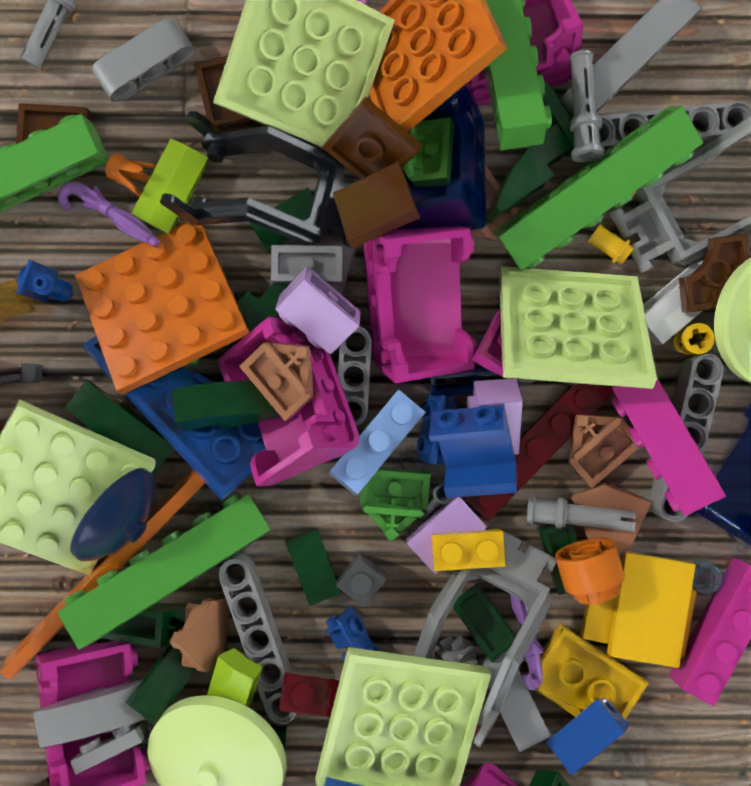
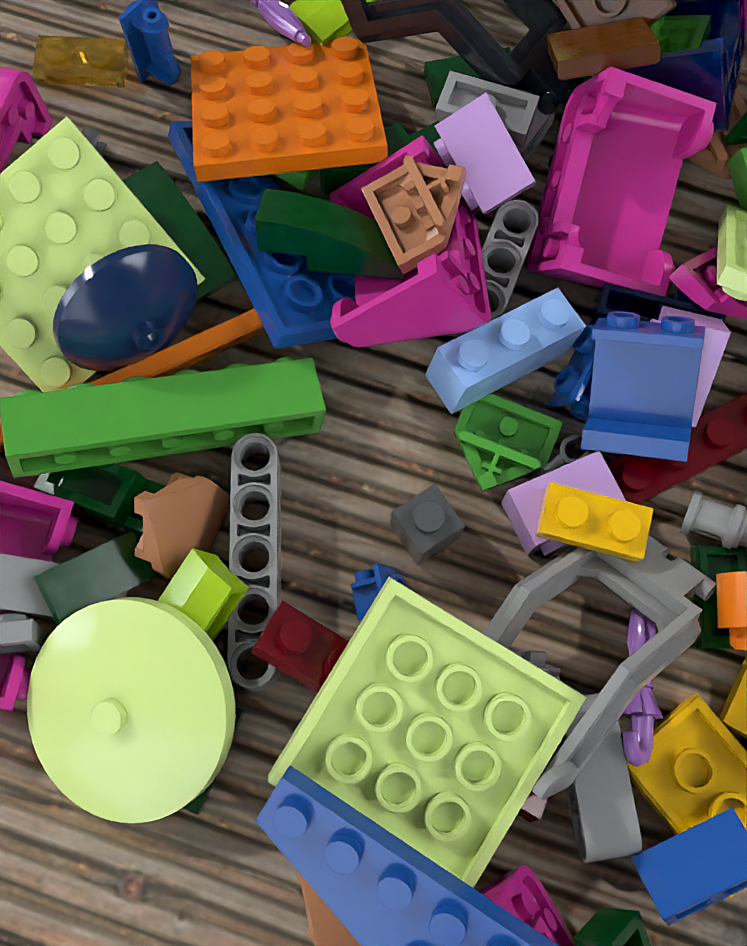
camera: 15 degrees right, 15 degrees down
(313, 566) = (362, 495): dark green tile -> none
(484, 622) = (582, 642): dark green tile -> none

